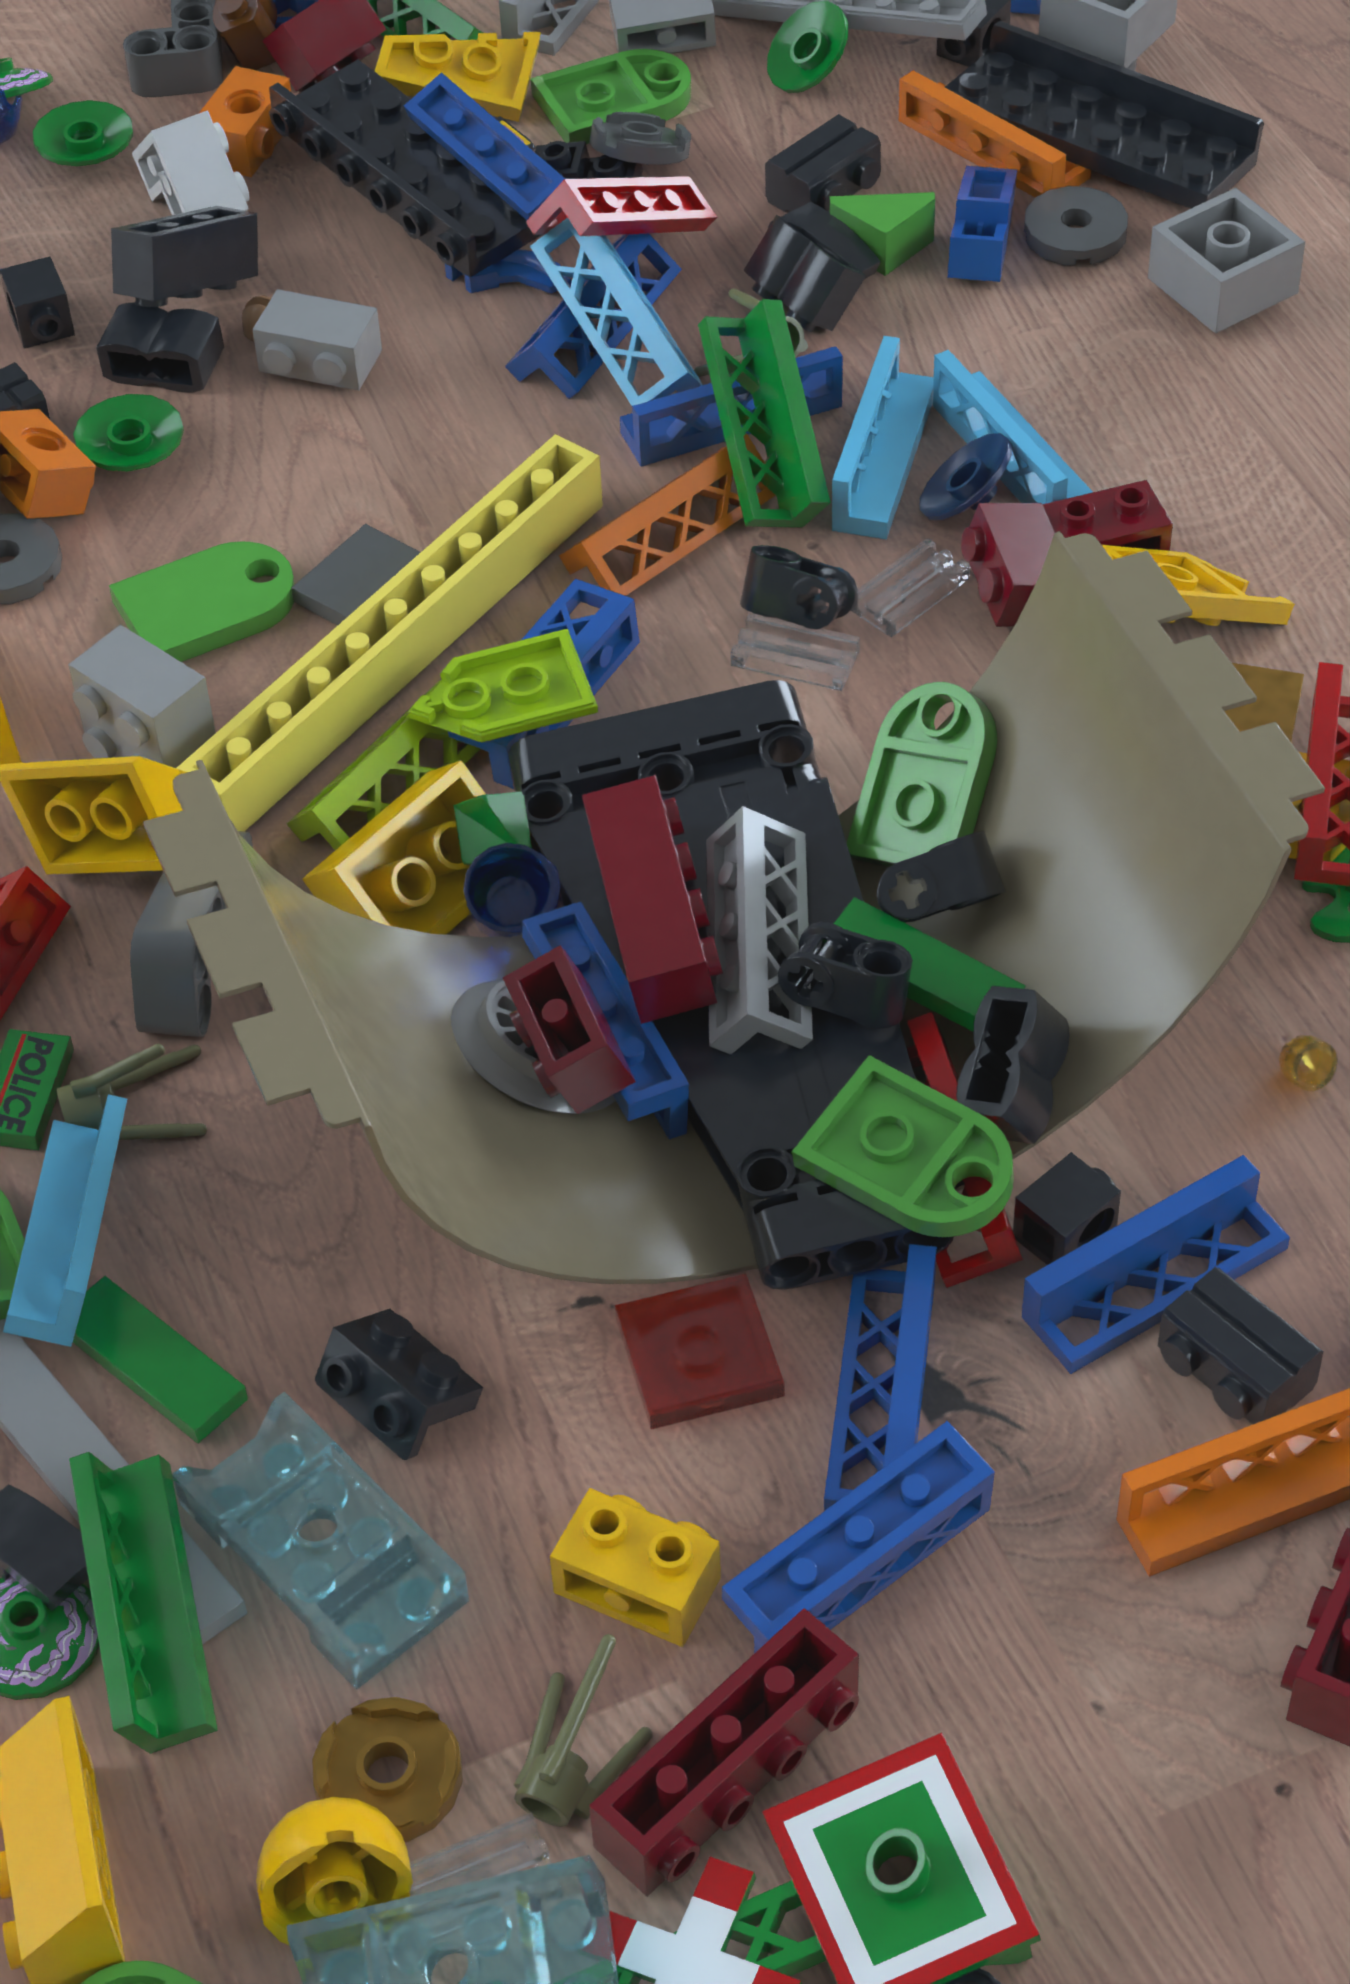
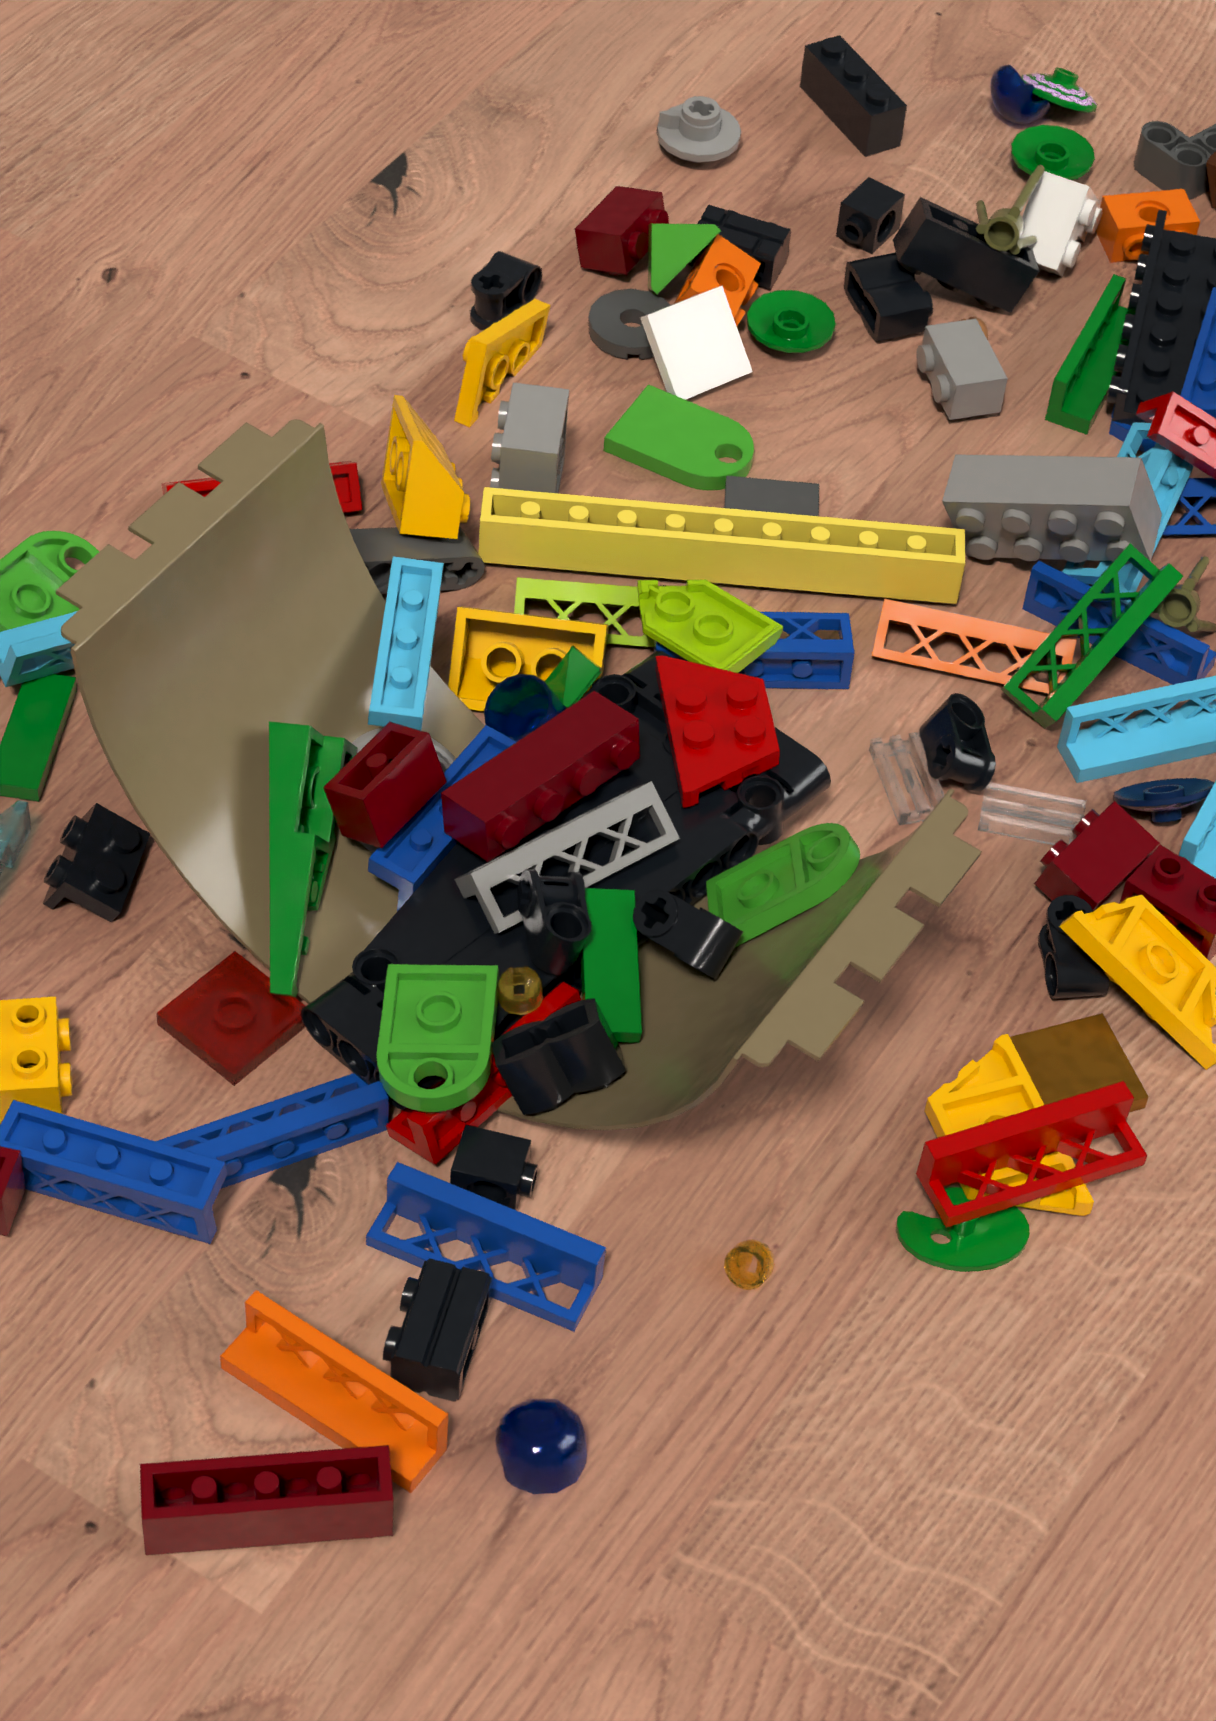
camera: 50 degrees right, 0 degrees up
(103, 513) = (696, 344): none -> white tile
(198, 194) = (1006, 224): none -> olive plant
(381, 250) = (1087, 371): none -> green fence
(406, 912) = (406, 643): none -> medium azure fence
(584, 1160) = (298, 838): none -> green wedge
(596, 350) = (1052, 506): none -> light grey brick
(671, 727) = (715, 725): none -> red wing
(896, 1052) = (520, 1003): none -> clear yellow hinge

